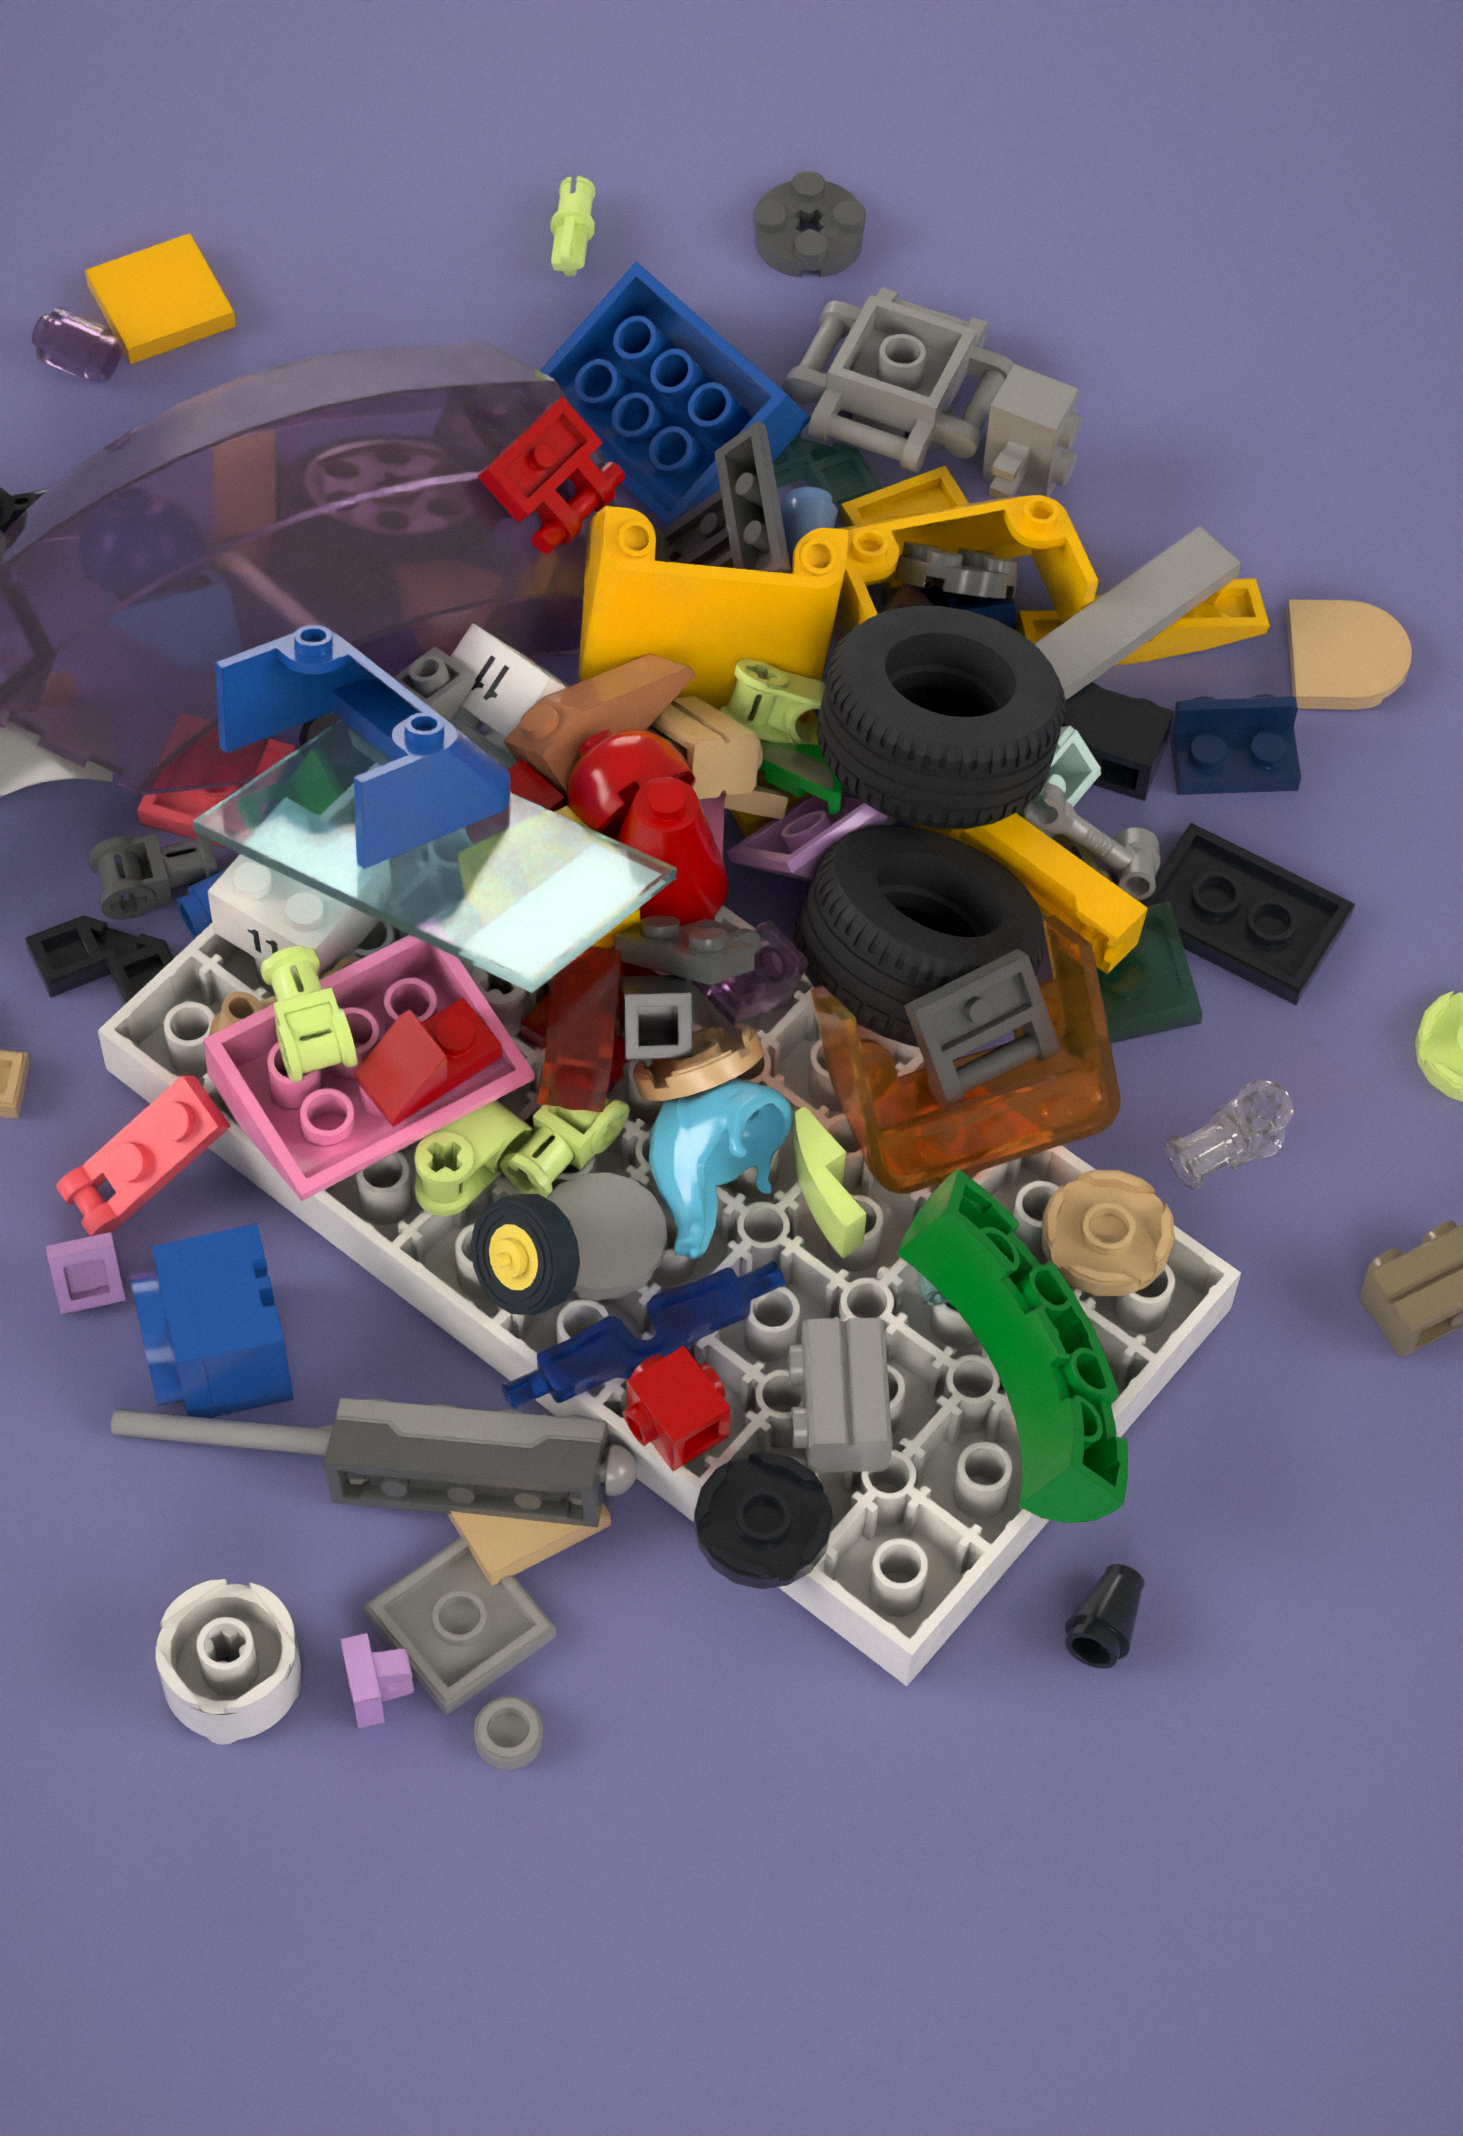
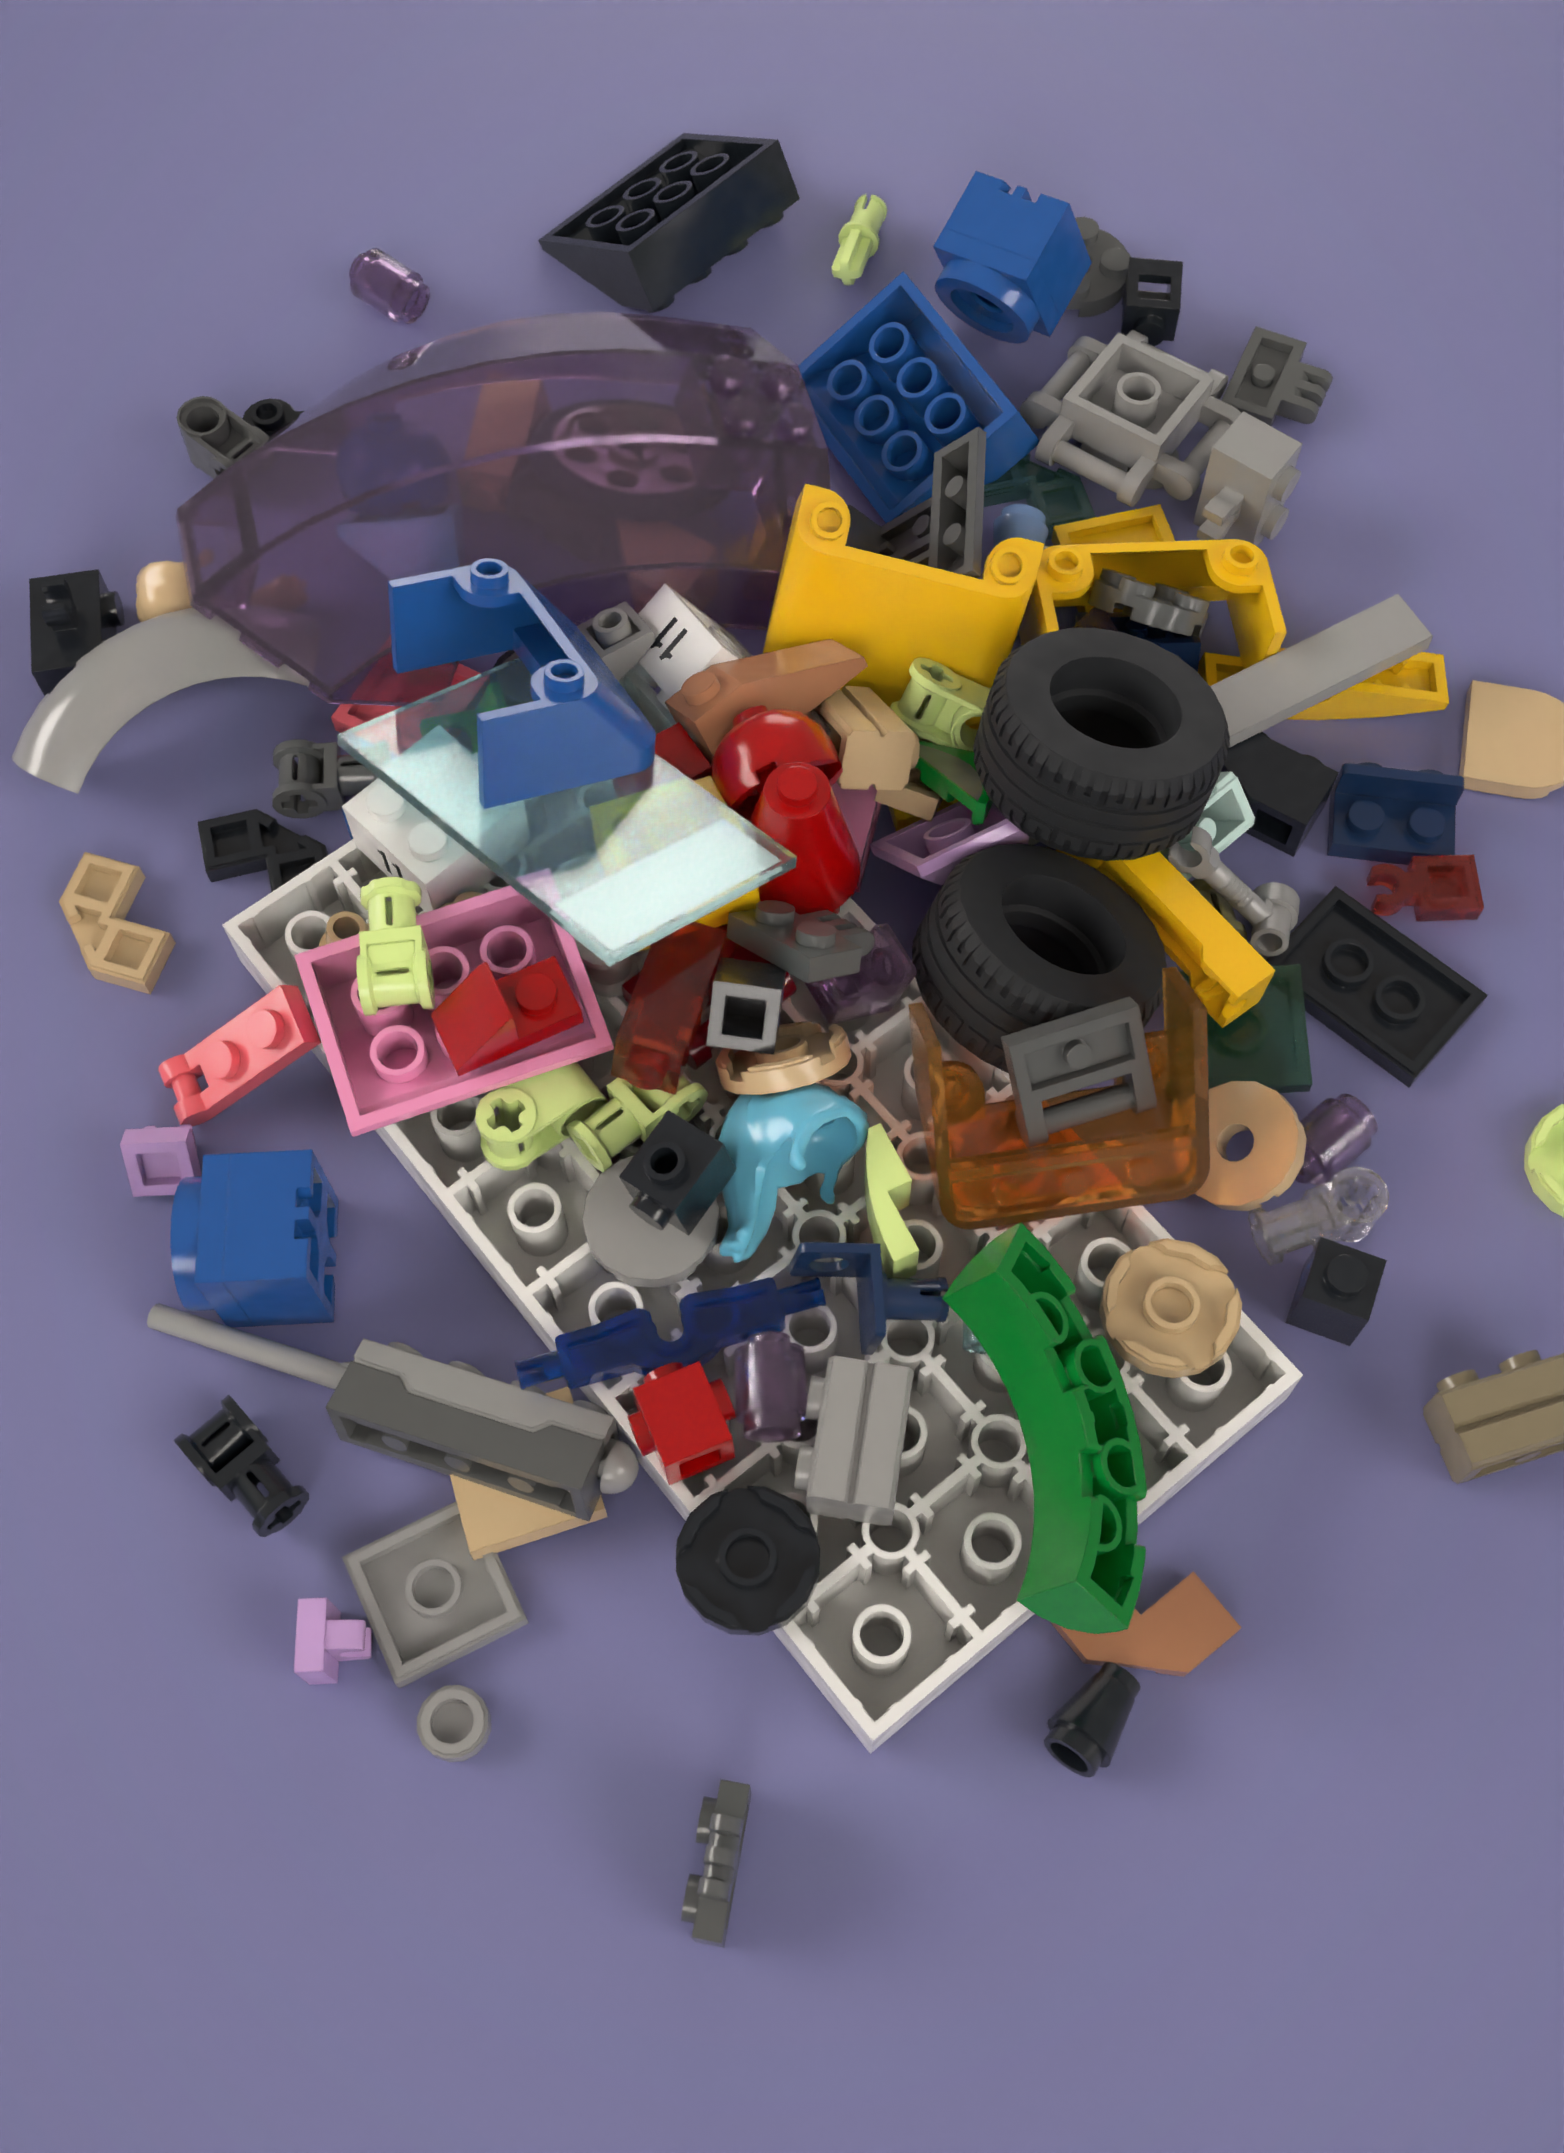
camera: 15 degrees right, 5 degrees up
(160, 298) = (475, 256): yellow tile -> none
(241, 1536) = (236, 1459): none -> black connector
(256, 1636) = (150, 1585): white brick -> none
(368, 227) = (675, 217): none -> black slope
(525, 1254) = (564, 1231): black wheel -> none
(542, 459) = (758, 433): red plate -> none
(624, 1182) = (676, 1174): none -> black brick
(742, 234) = (1009, 260): none -> blue piece
(752, 1363) = (770, 1387): none -> clear purple brick
(788, 1770) = (711, 1895): none -> dark grey hinge
(832, 1265) = (877, 1295): none -> dark blue bracket
(895, 263) = (1148, 311): none -> black brick
(1037, 321) = (1275, 381): none -> dark grey hinge
(1160, 1536) = (1165, 1638): none -> nougat tile
(1178, 1086) = (1276, 1148): none -> tan tile
(1226, 1063) = (1335, 1137): none -> clear purple brick
(1259, 1200) = (1336, 1291): none -> black brick
(1287, 807) = (1434, 885): none -> clear red plate

